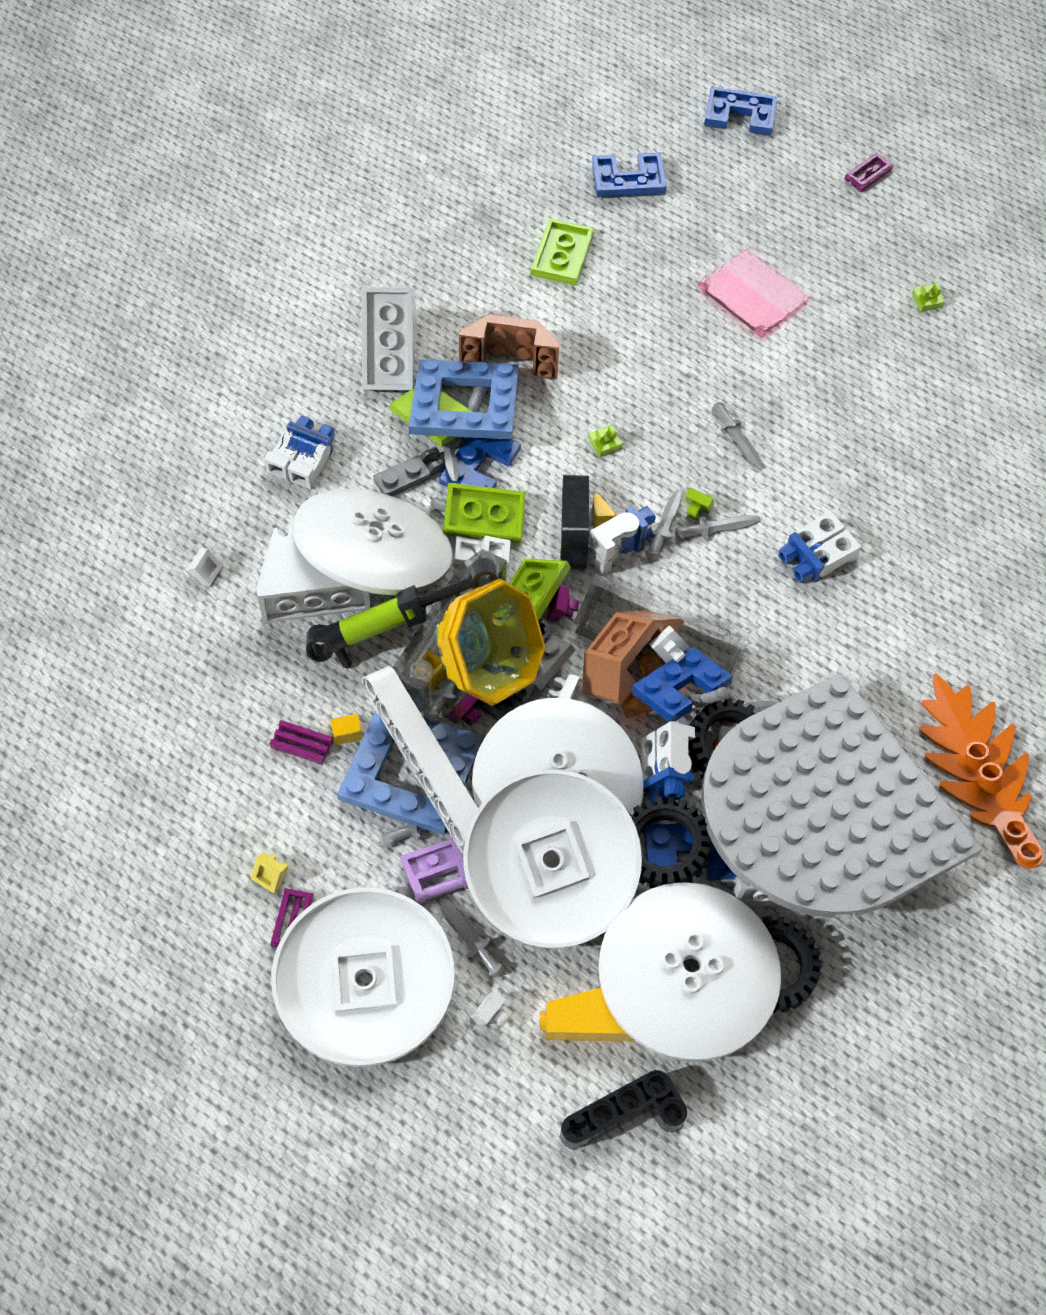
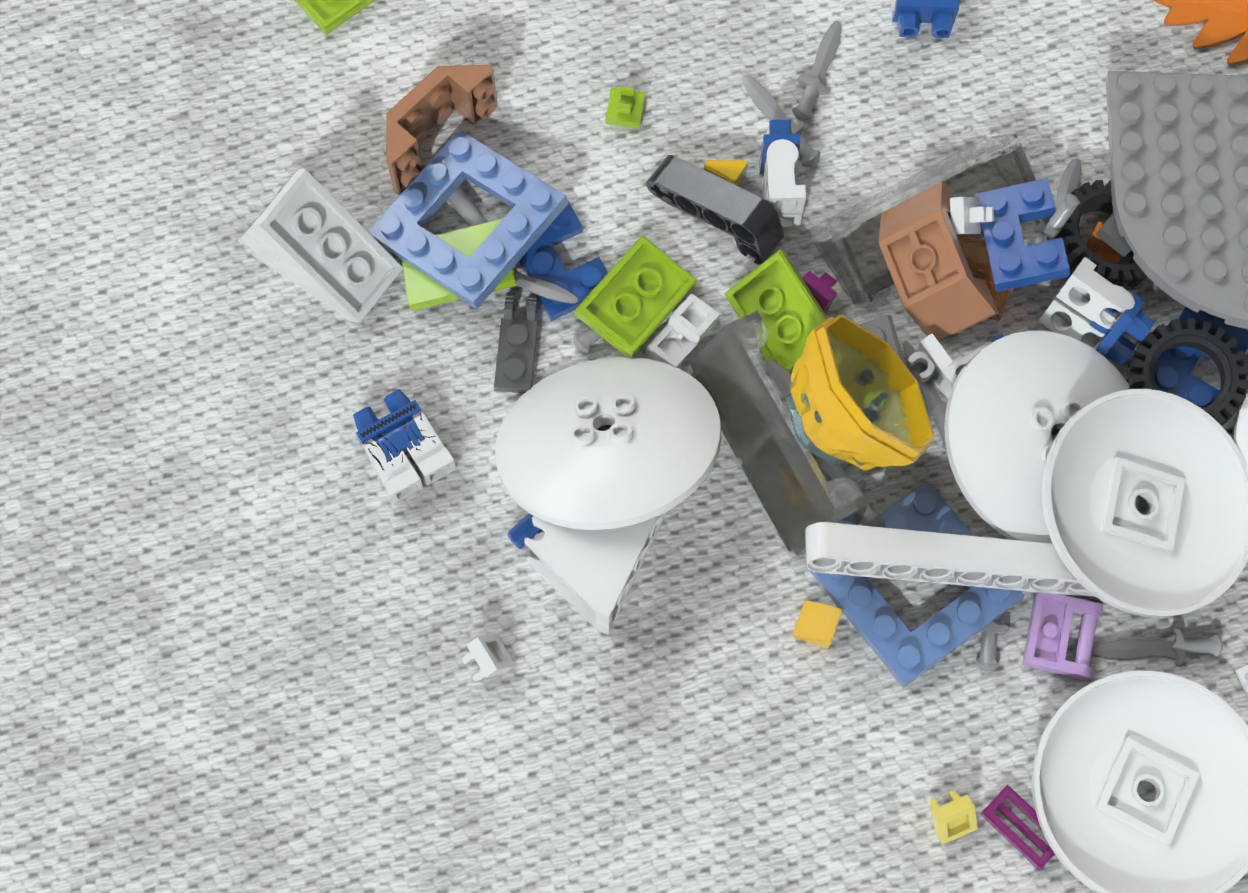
camera: 55 degrees left, 10 degrees up
(286, 726) = (828, 665): magenta tile -> none
(405, 608) = (705, 572): black piece -> none
(465, 711) = (883, 483): magenta tile -> none
(698, 502) = (782, 69): lime tile -> none

